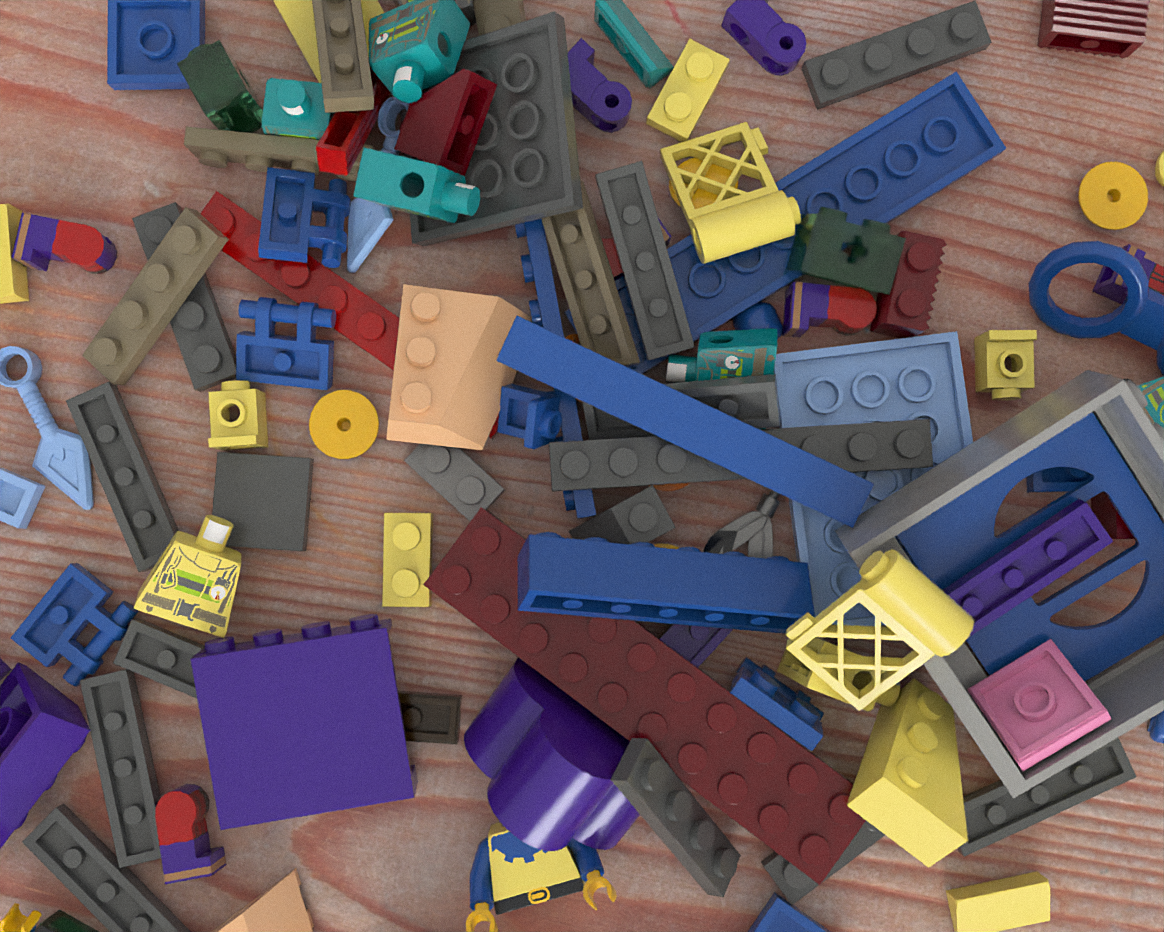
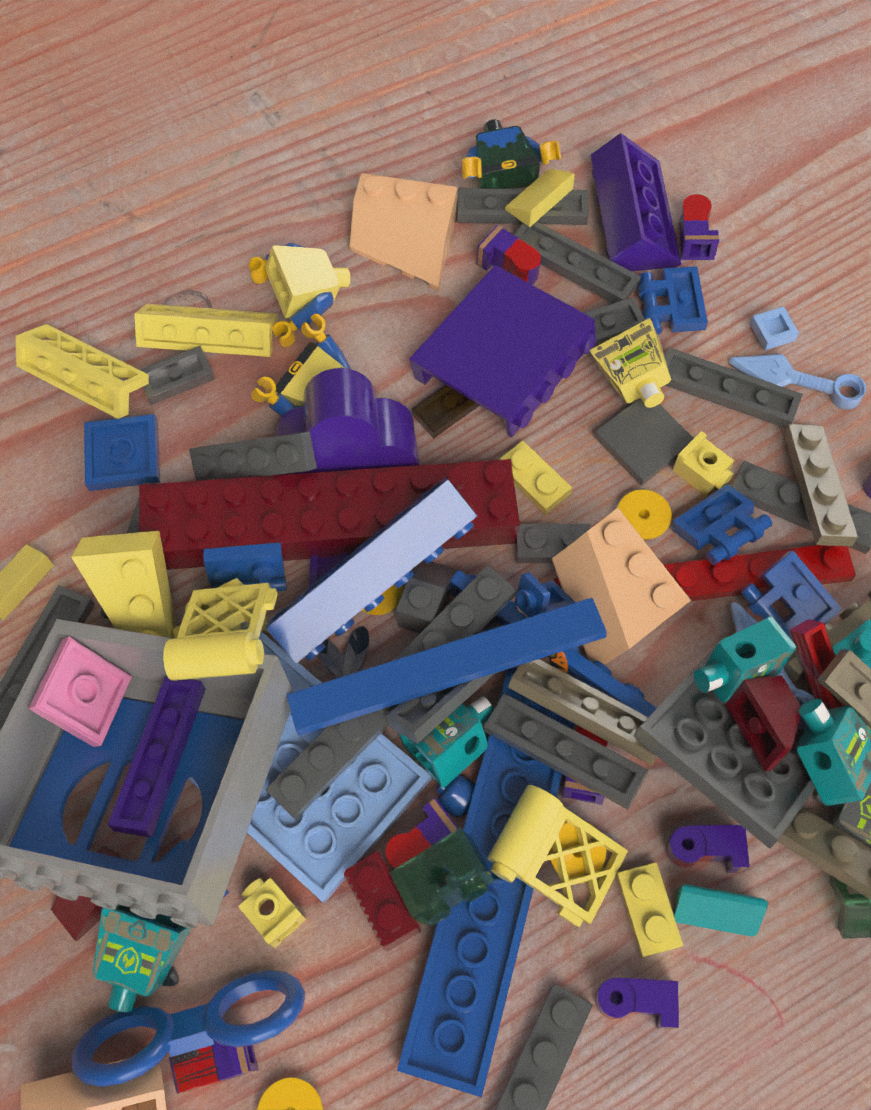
camera: 140 degrees right, 20 degrees down
(80, 879) = (541, 196): none -> light yellow slope

